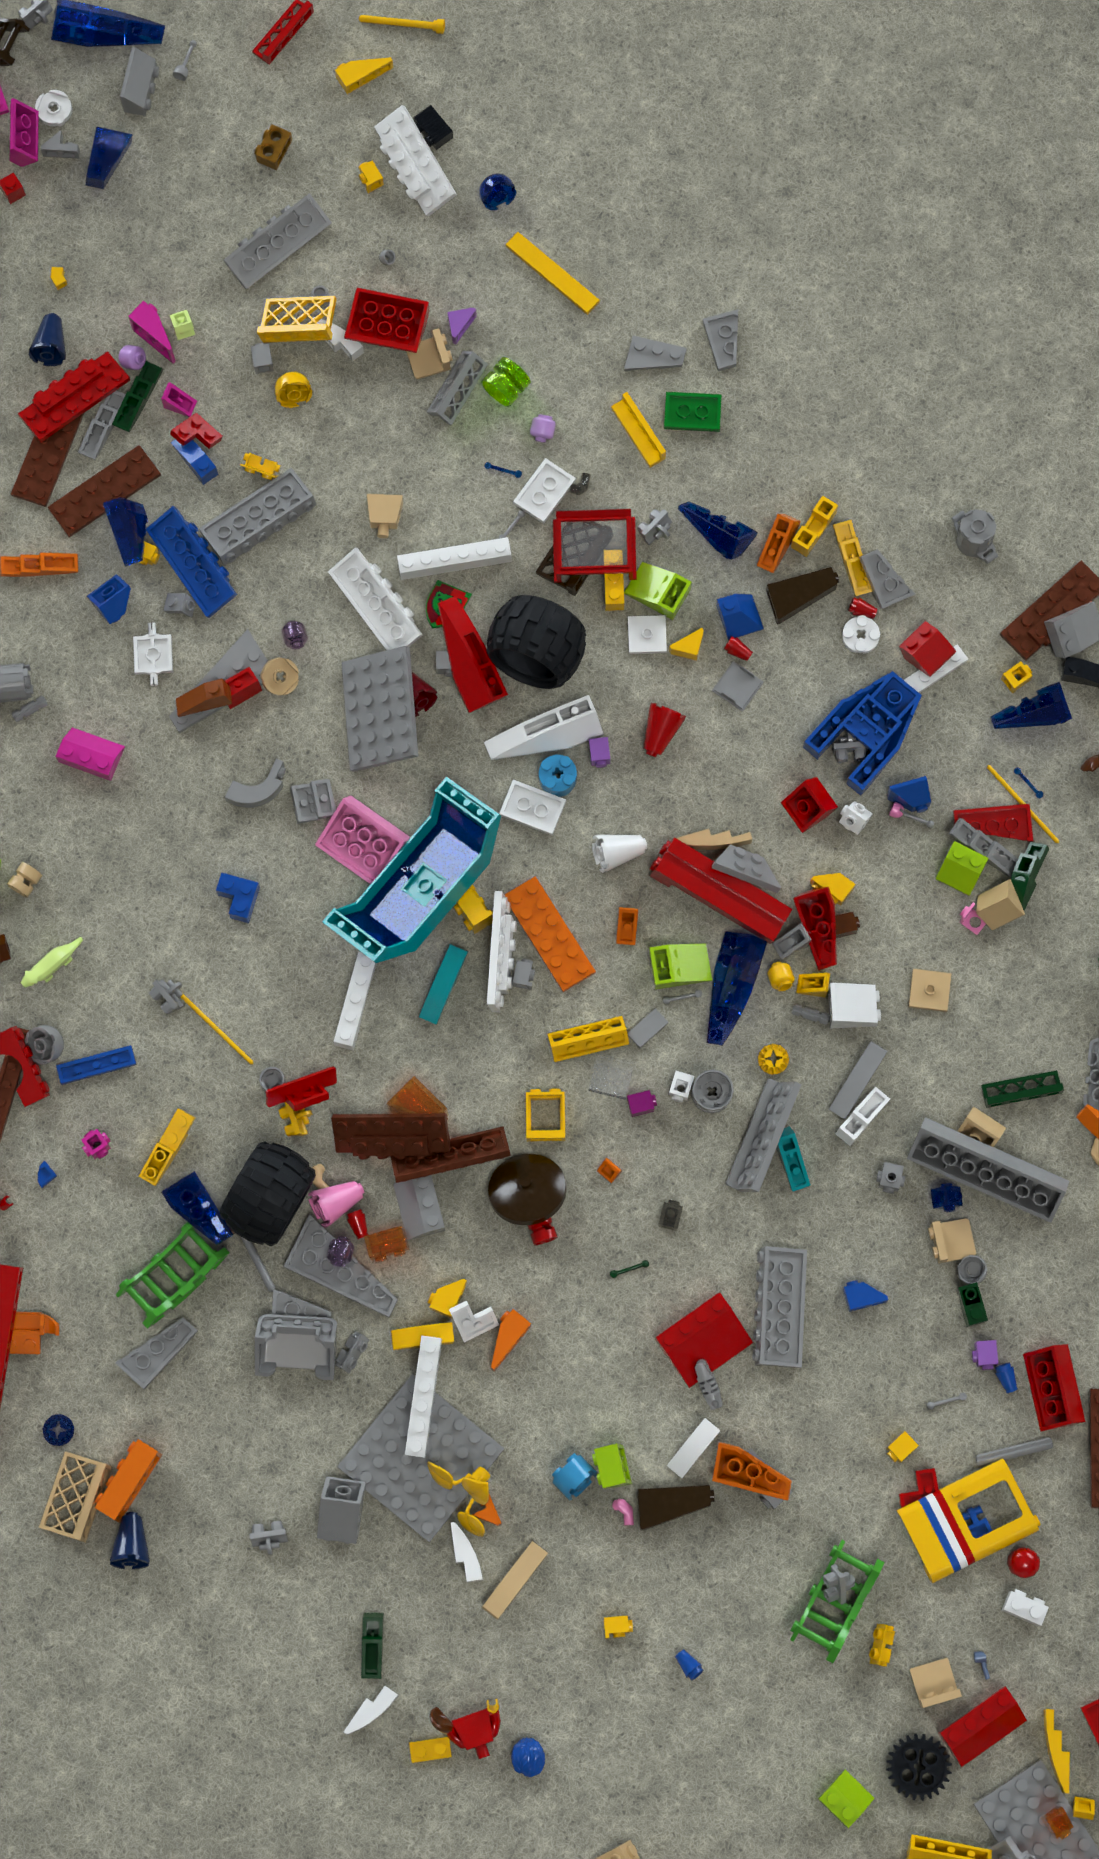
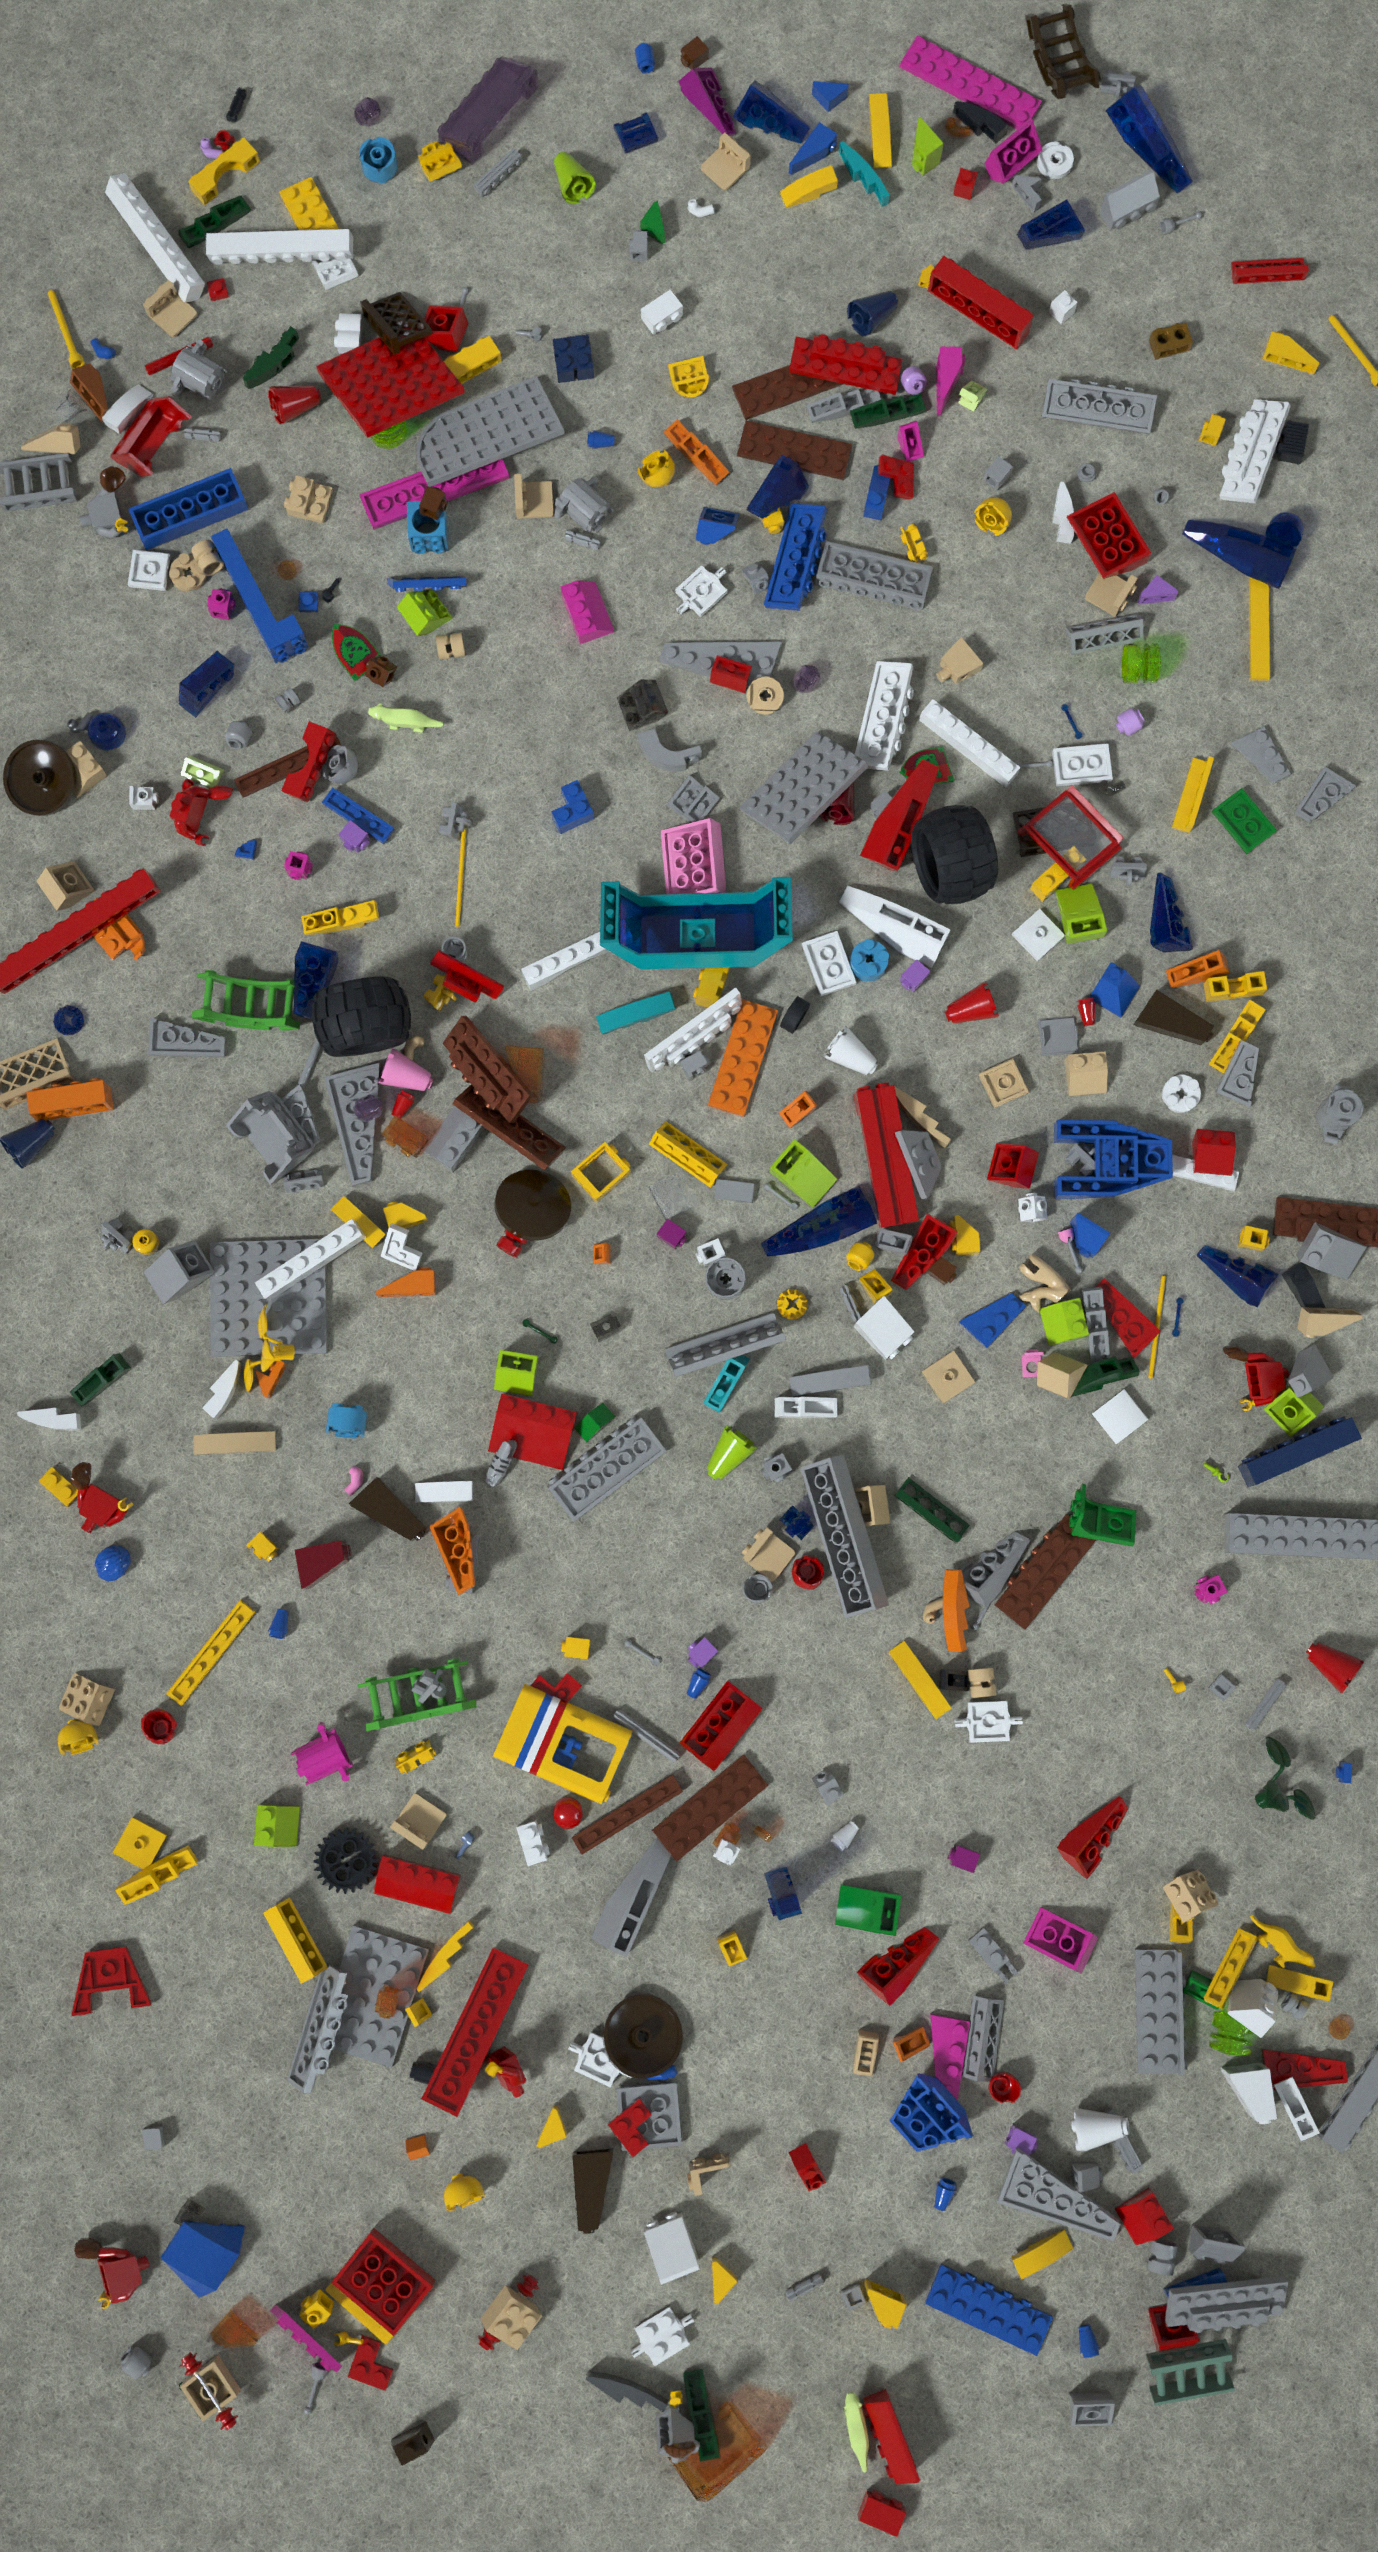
camera: 45 degrees right, 5 degrees up
(27, 605) = (657, 469): none -> yellow cylinder
(111, 1082) = (354, 837): none -> medium lavender brick
(117, 257) = (980, 302): none -> red brick
(175, 201) = (1063, 307): none -> white brick
(203, 774) = (642, 704): none -> clear smoke slope
(204, 697) = (699, 654): dark orange slope -> none
(295, 331) = (1040, 478): yellow fence -> none
(295, 1523) = (151, 1245): none -> yellow head
(485, 234) = (1244, 550): none -> clear blue wedge
(551, 866) = (795, 1014): none -> black tyre
(612, 1466) = (377, 1443): lime slope -> none
(647, 1313) = (516, 1372): none -> lime slope
(665, 1738) = (211, 1652): none -> yellow tile
(667, 1588) = (320, 1561): none -> dark red slope
(688, 646) = (1056, 972): yellow slope -> none
(689, 1827) = (158, 1726): none -> red hair
(736, 1286) = (594, 1422): none -> green slope
(739, 757) = (1003, 1083): none -> tan plate
(785, 690) = (1086, 1073): none -> tan slope
(823, 1716) = (322, 1756): none -> dark pink container
(849, 1203) = (729, 1453): none -> lime cone
(861, 607) = (1203, 1076): red cone -> none
(862, 1296) = (666, 1521): blue slope -> none
(912, 852) = (1044, 1274): none -> tan piece
(914, 919) = (993, 1319): none -> blue wing
(972, 1305) = (730, 1610): dark green slope -> none
(991, 1221) = (808, 1572): none -> red hair
(1063, 1517) = (627, 1814): none -> copper plate
(1068, 889) = (1120, 1416): none -> white slope

